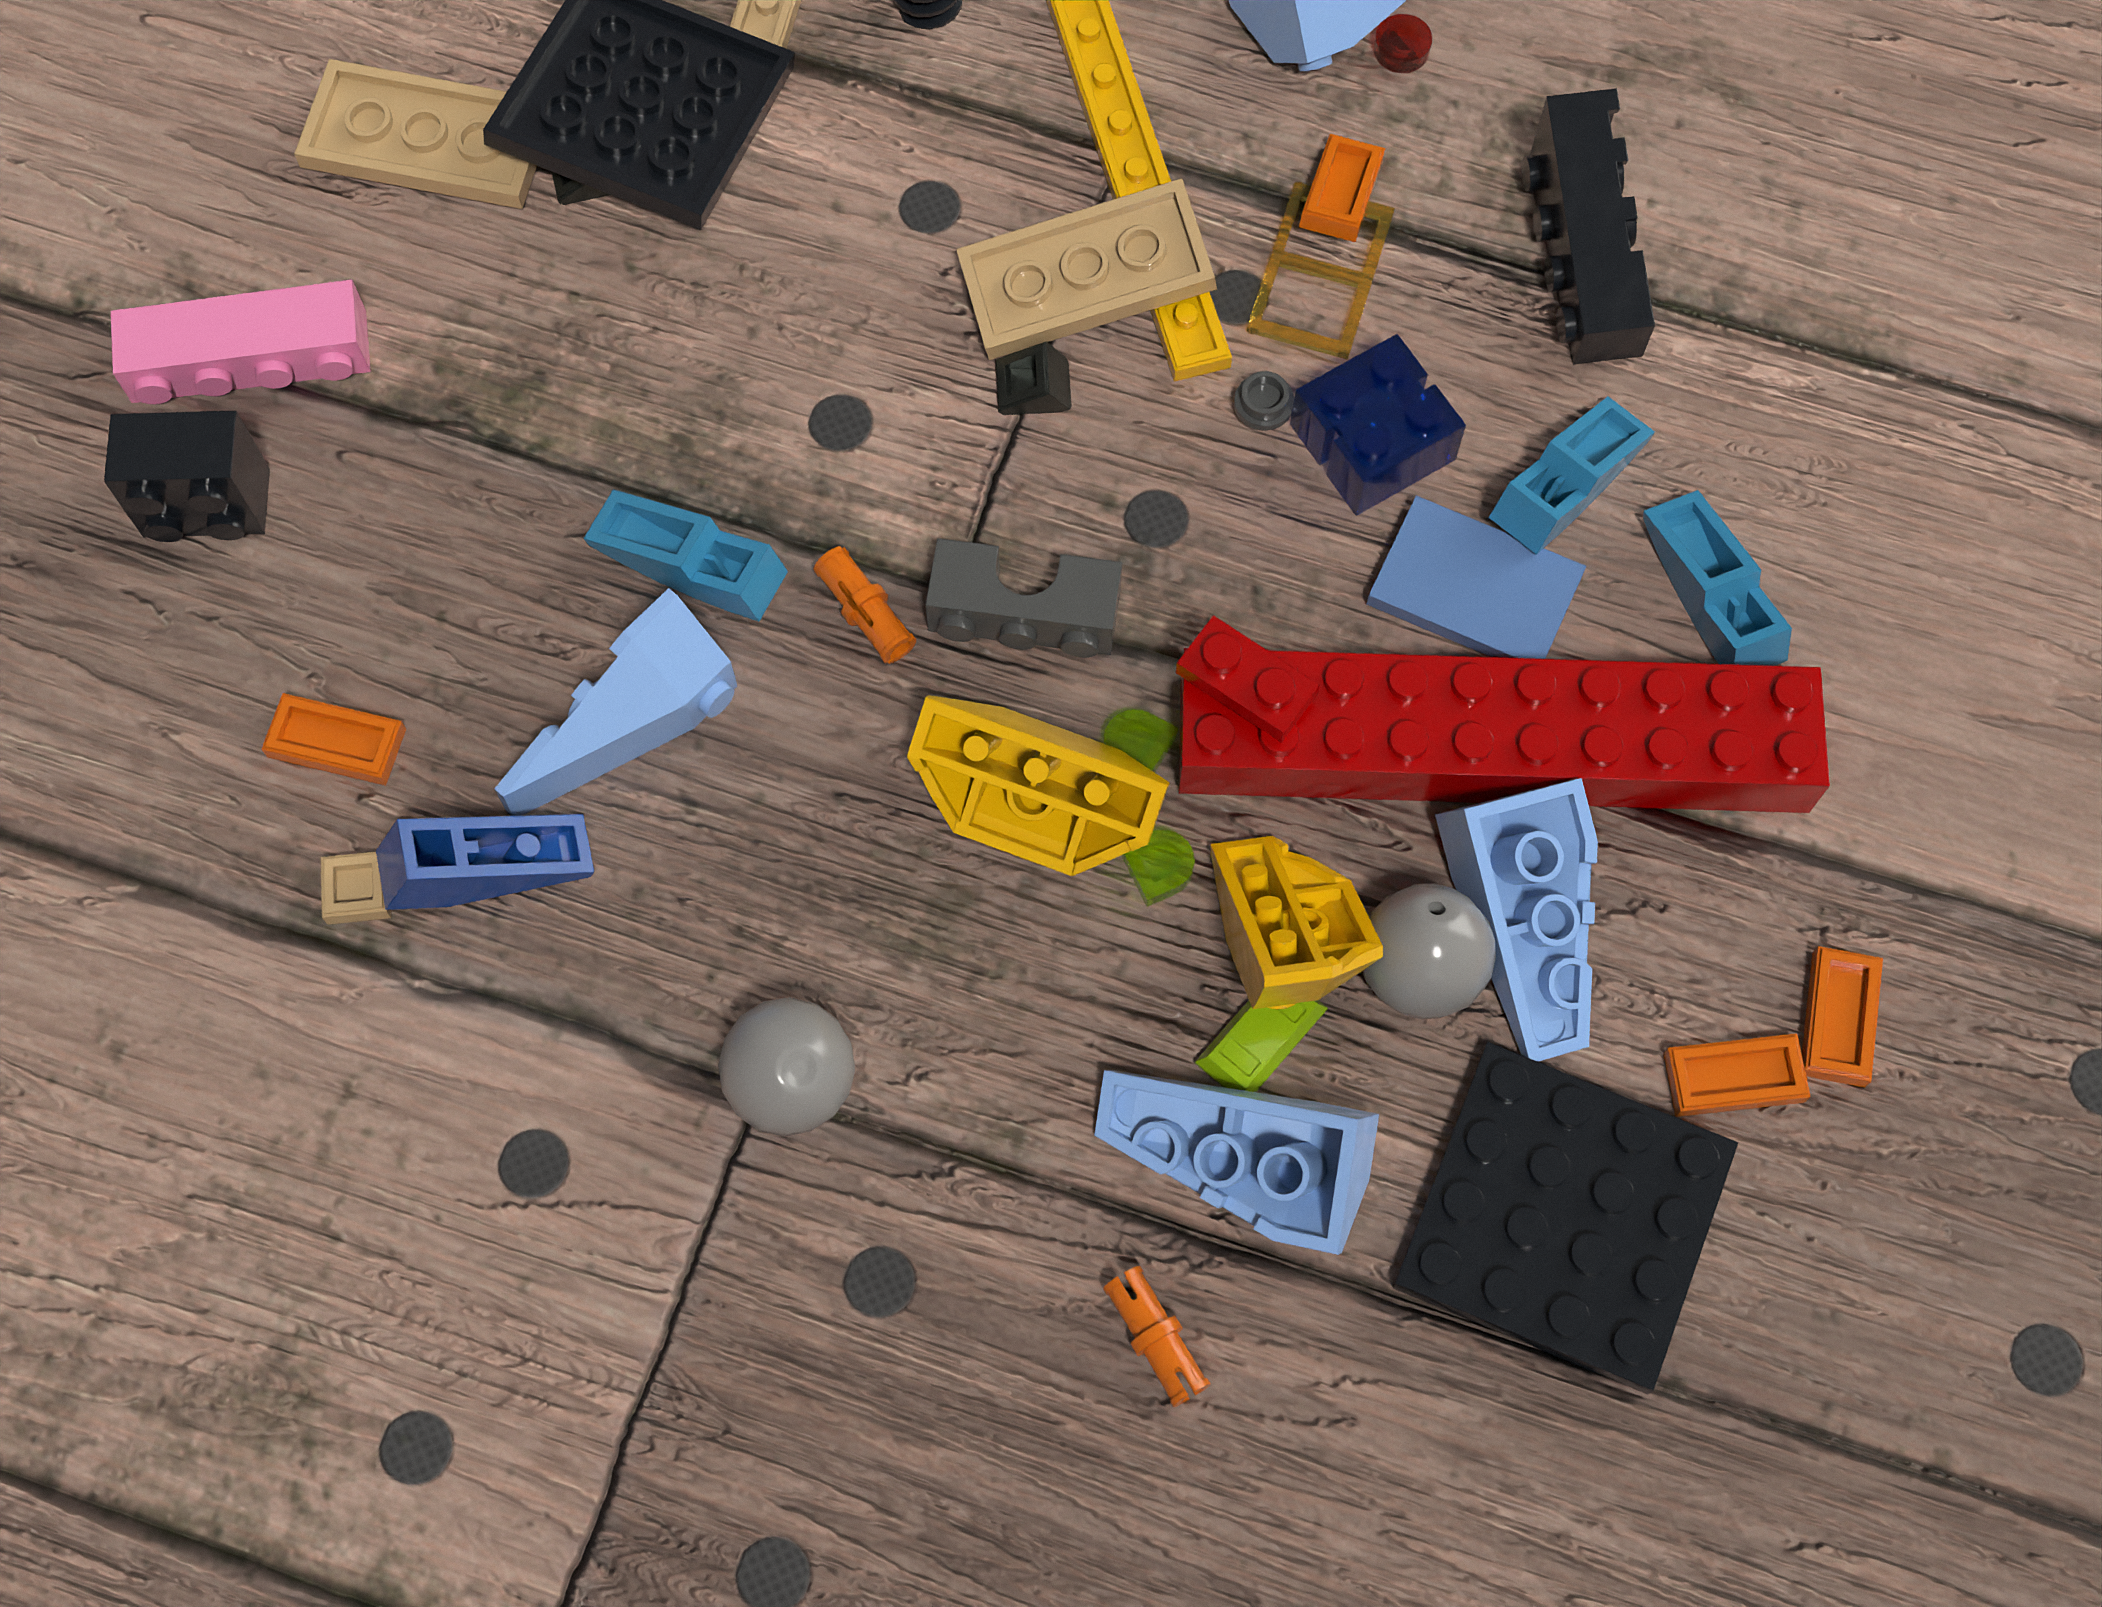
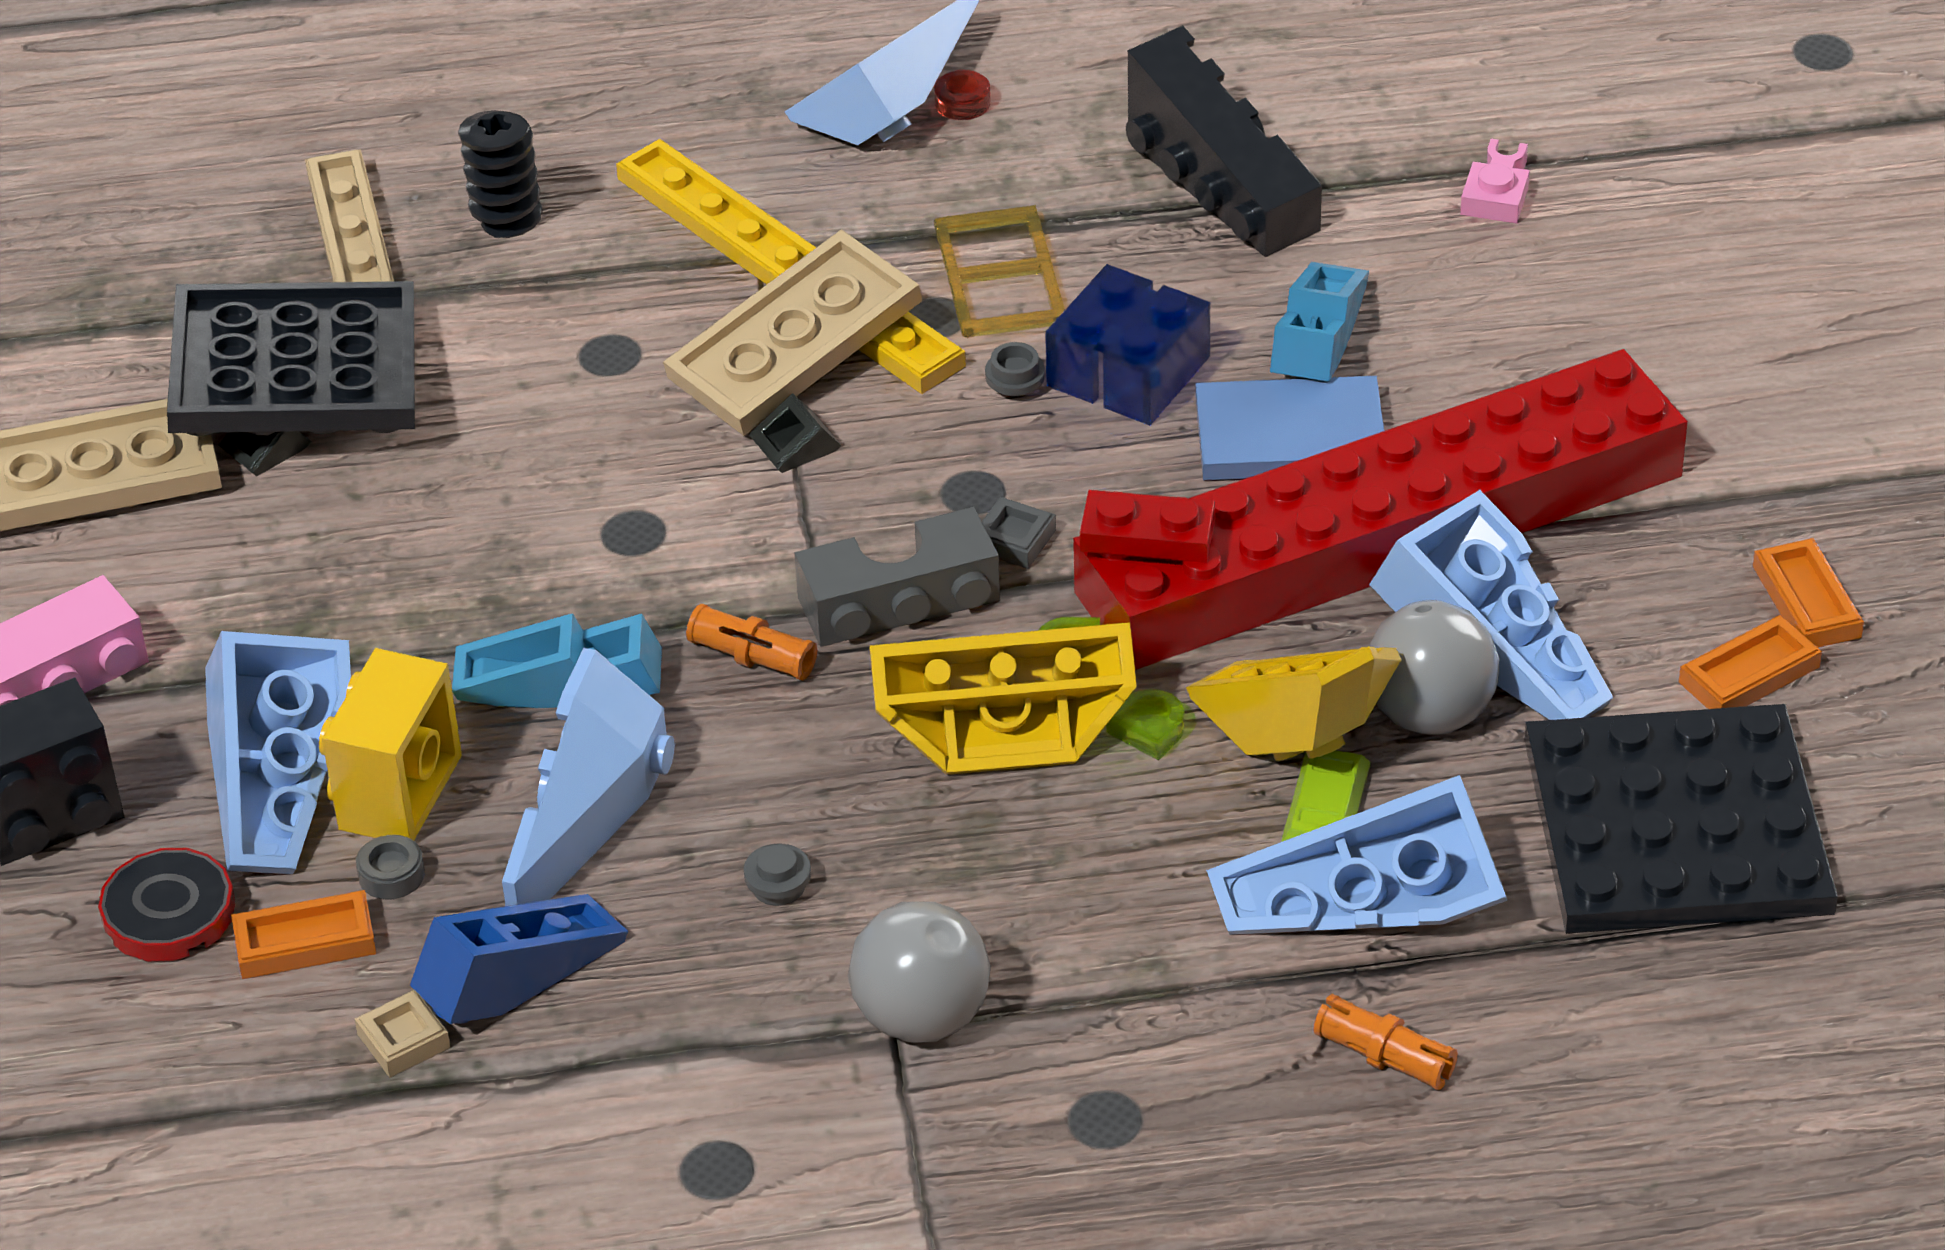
camera: 25 degrees left, 25 degrees down
(242, 651) = (166, 903): none -> tile
(408, 522) = (264, 734): none -> light blue wedge
(440, 701) = (390, 867): none -> dark grey tile
(483, 590) = (391, 745): none -> yellow brick
(746, 874) = (777, 873): none -> dark grey plate
(1162, 587) = (1018, 531): none -> dark grey tile
(1342, 188) = (981, 203): orange tile -> none
(1717, 583) = (1489, 340): dark azure slope -> none
(1836, 385) = (1498, 187): none -> bright pink plate

